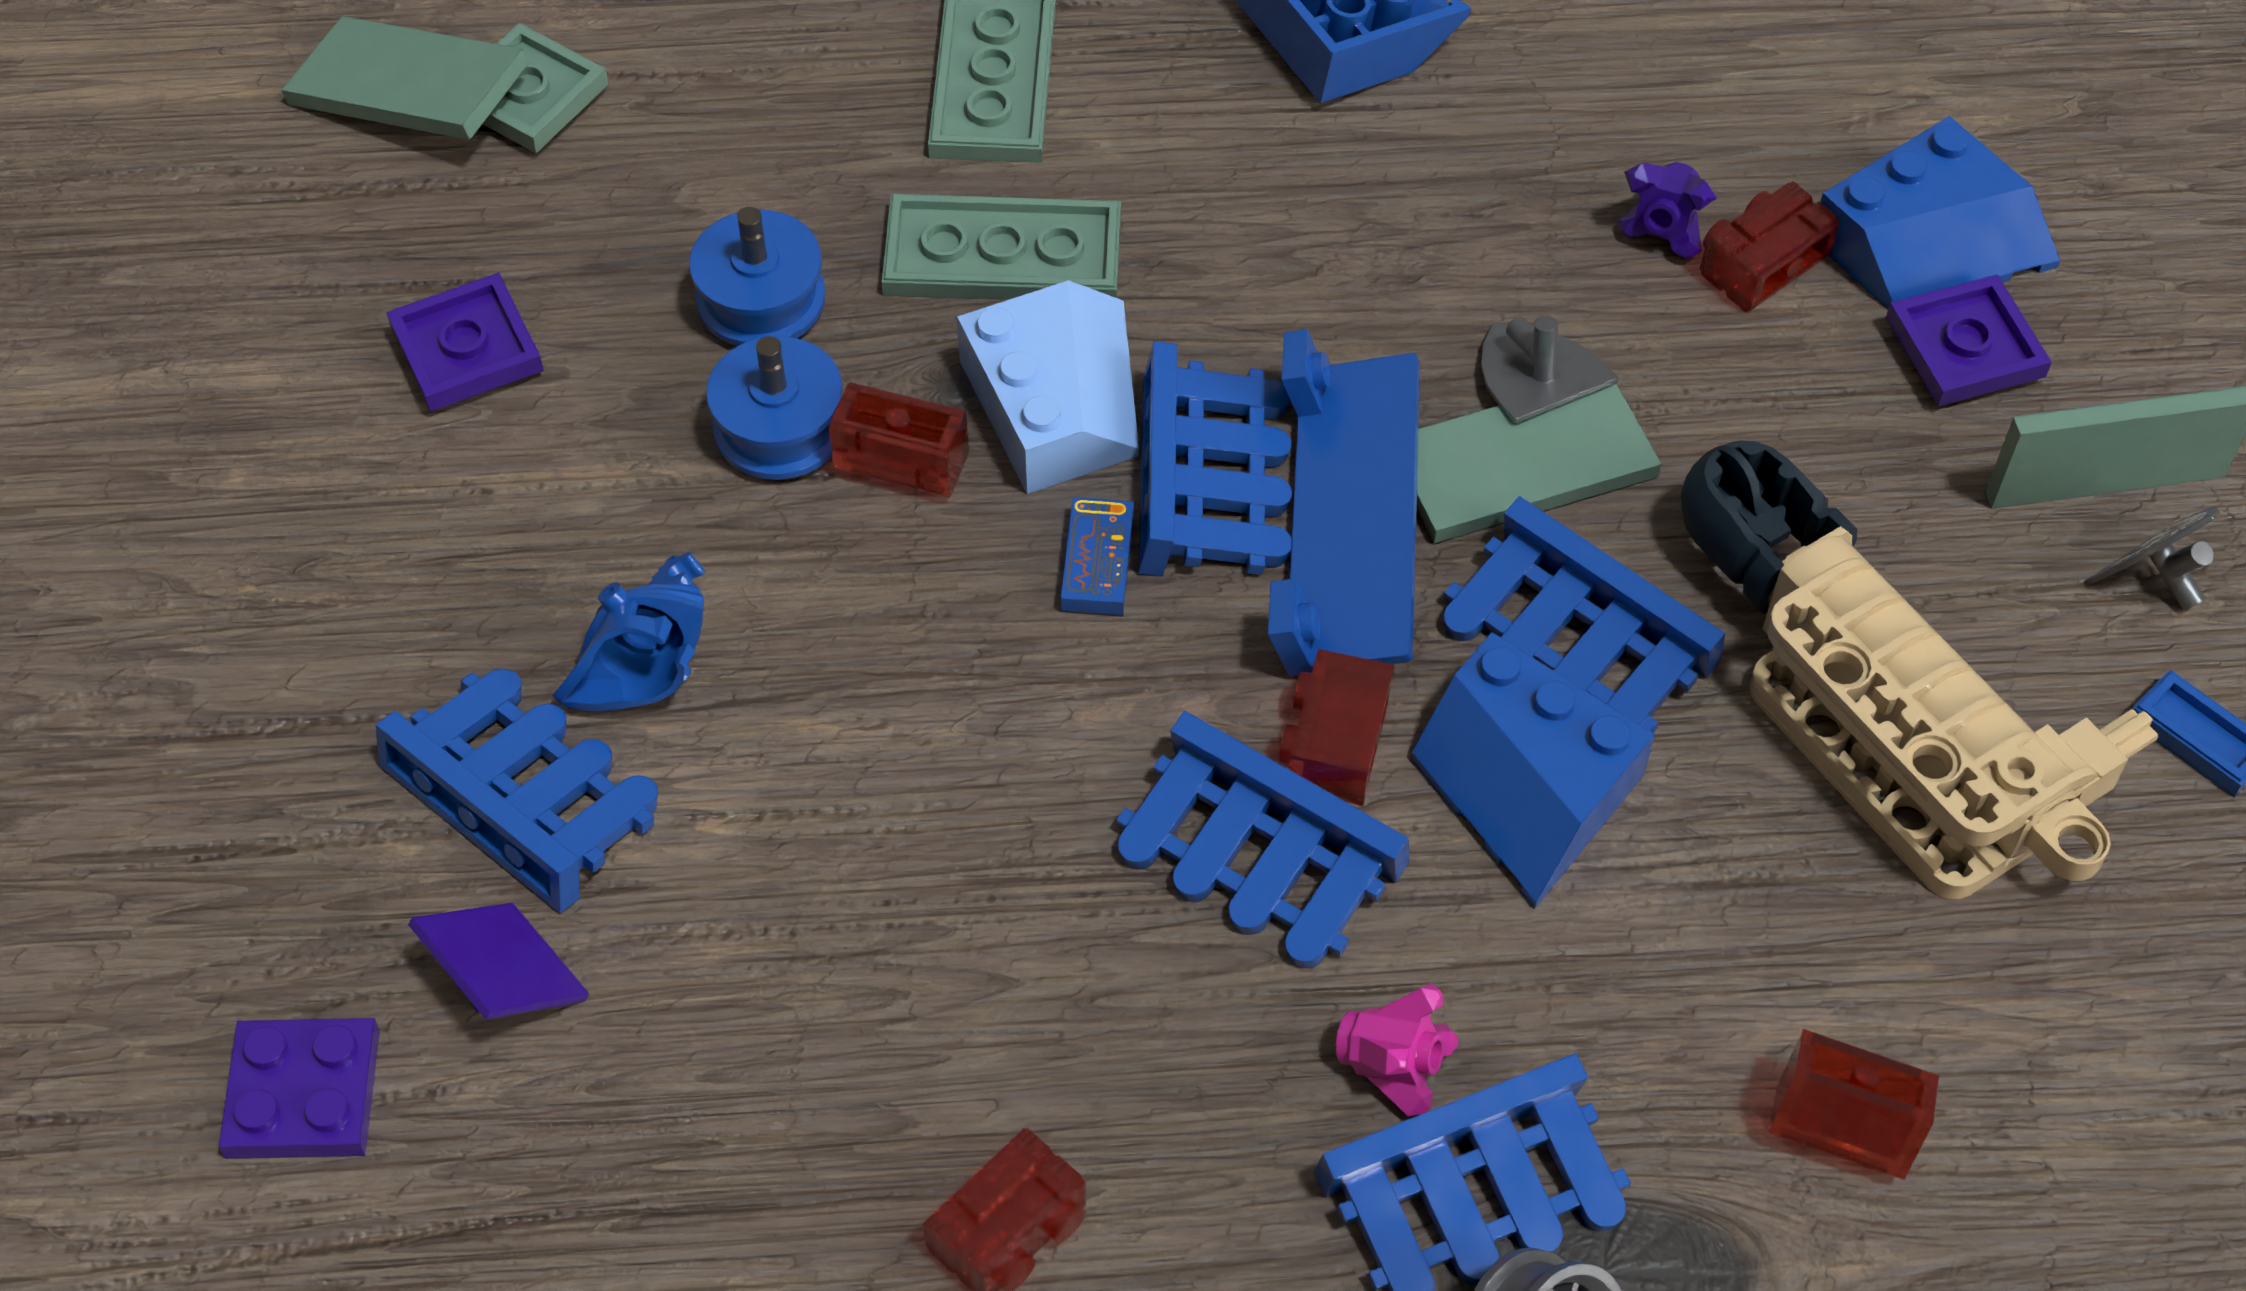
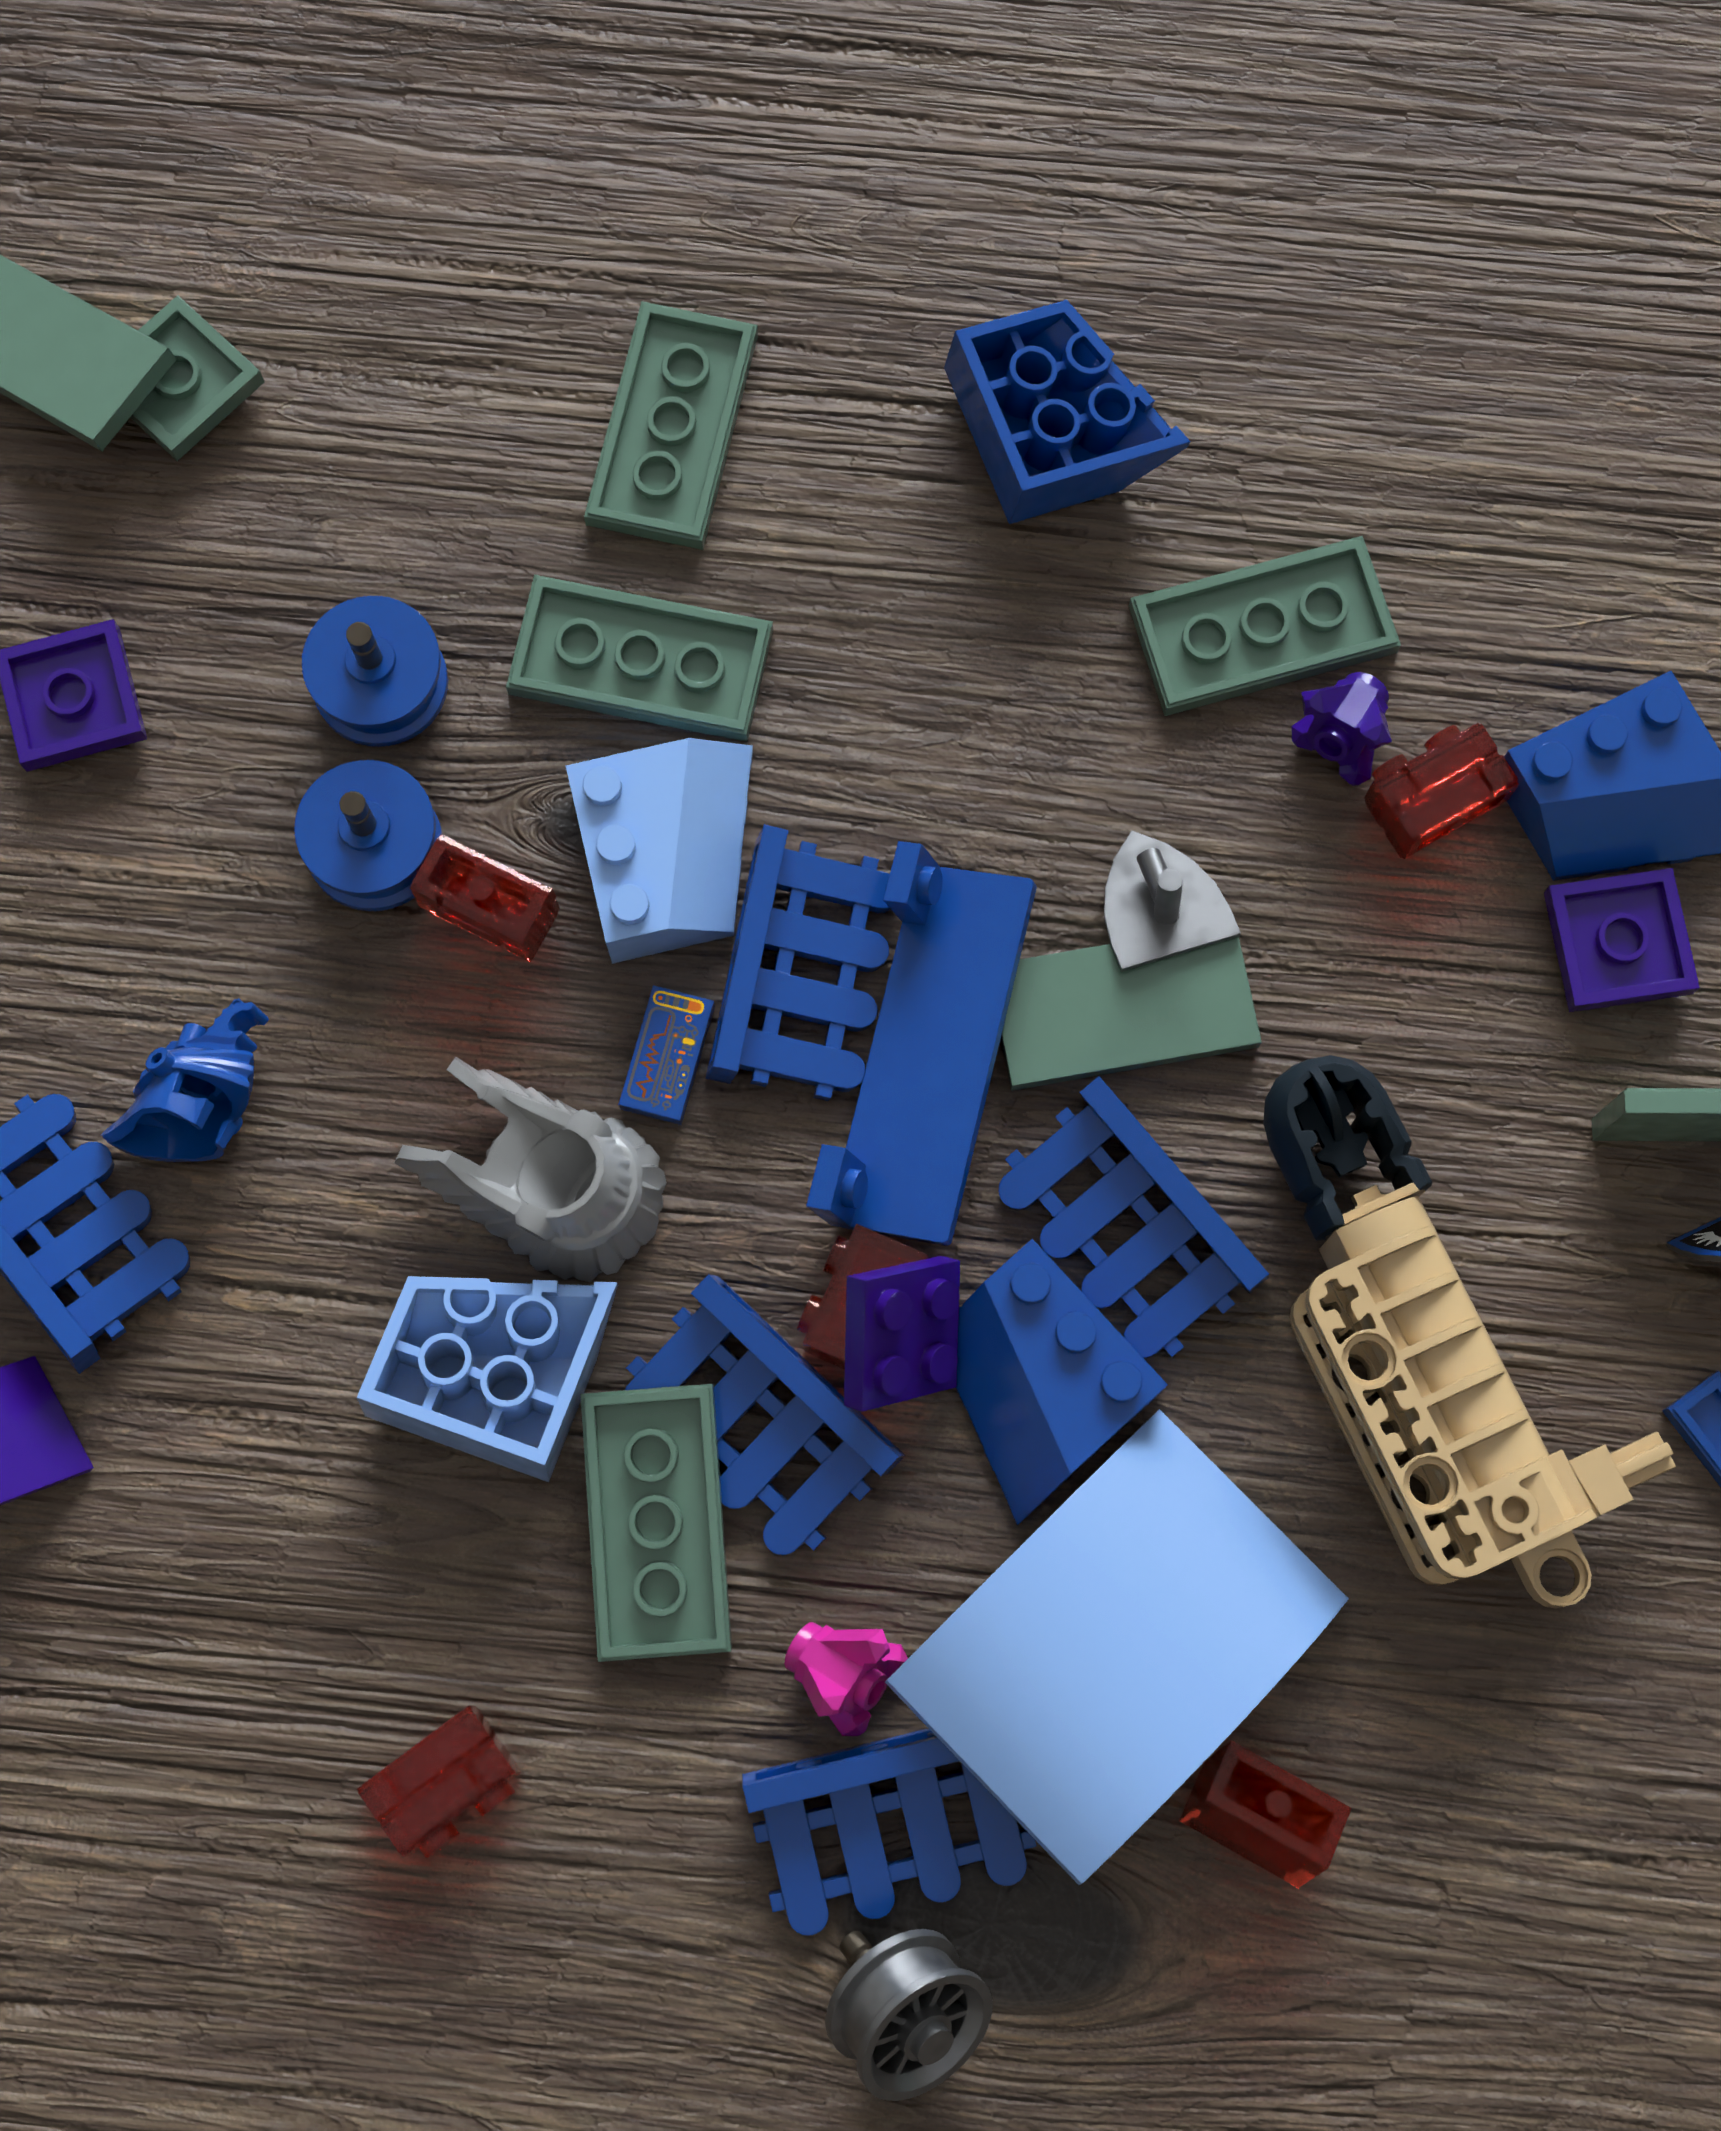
camera: 10 degrees right, 20 degrees up
(979, 830) = (489, 1365): none -> light blue wedge
(1011, 669) = (553, 1182): none -> light grey piece
(1177, 950) = (656, 1522): none -> sand green tile
(1386, 728) = (901, 1332): none -> dark purple plate
(1568, 150) = (1264, 625): none -> sand green tile
(1659, 977) = (1118, 1646): none -> light blue slope

